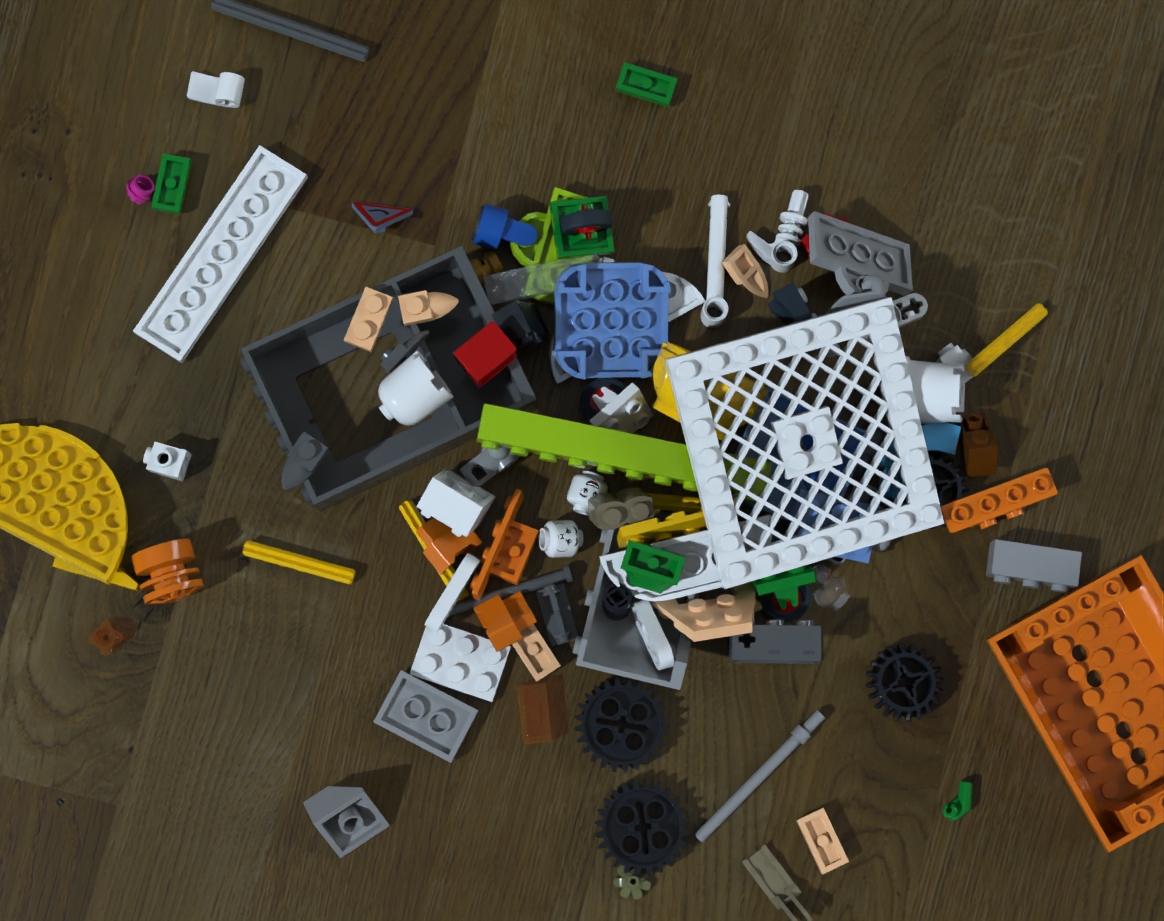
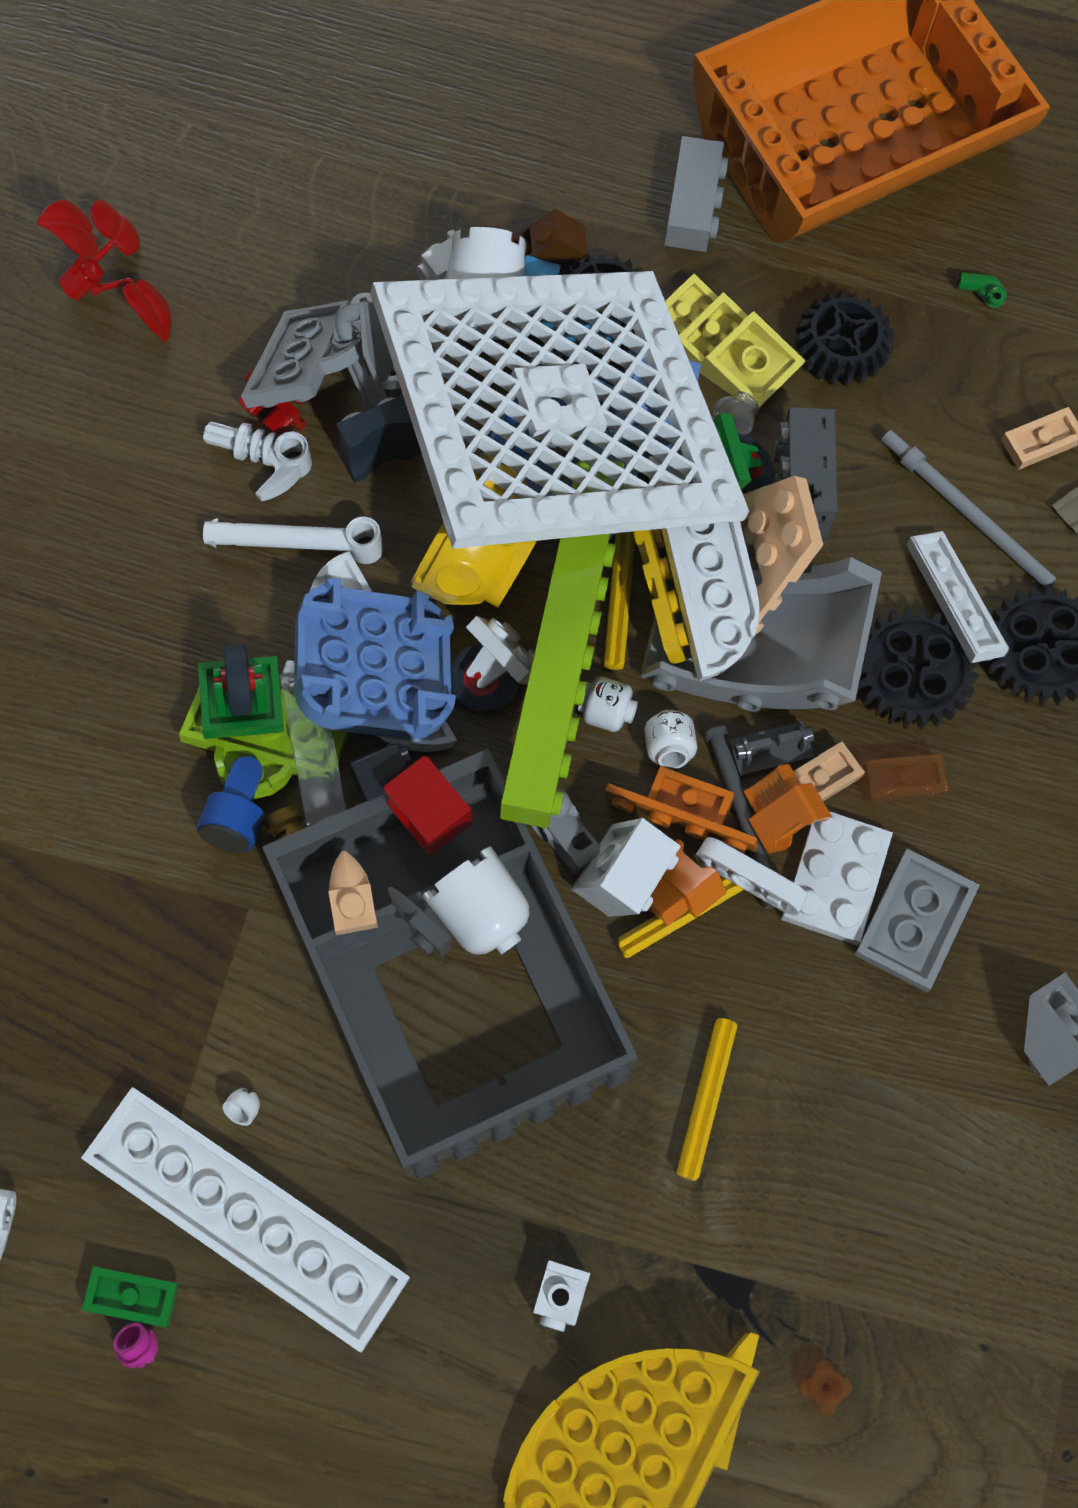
camera: 90 degrees left, 10 degrees down
(167, 571) = (737, 1284): orange wheel -> none
(295, 247) = (242, 1107): none -> white hinge
(302, 461) = (575, 1072): dark grey plate -> none
(368, 319) = (367, 976): light nougat plate -> none
(380, 216) = (202, 980): piece -> none
(614, 510) = (635, 652): dark tan brick -> none
(617, 608) = (759, 670): black wheel -> none
(646, 84) = (39, 618): green plate -> none
(651, 566) = (717, 602): green slope -> none
(652, 634) = (805, 612): white beam -> none
(679, 759) = (957, 597): none -> white tile
(746, 271) = (308, 501): light nougat plate -> none
(897, 587) = (732, 347): none -> light yellow slope
(939, 75) = (75, 231): none -> red plant
(999, 501) = (619, 215): orange bracket -> none
(1006, 339) = (414, 202): yellow axle -> none

